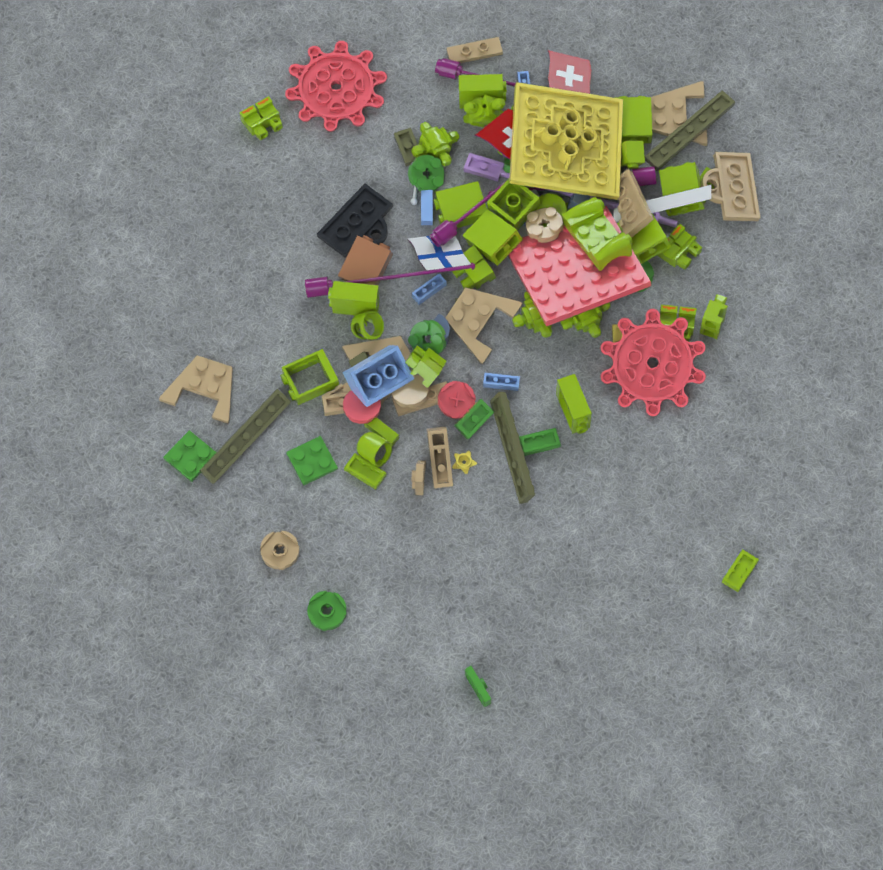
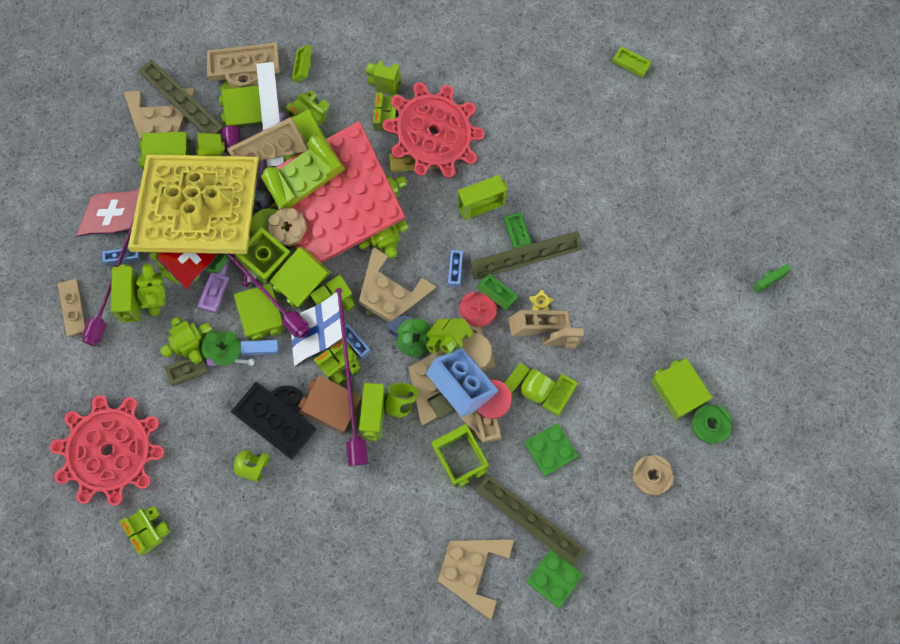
camera: 95 degrees left, 5 degrees up
(309, 193) = (247, 472): none -> lime helmet
(364, 582) = (680, 388): none -> lime brick
(407, 264) = (330, 366): none -> lime hips
(735, 242) = (302, 63): none -> lime plate

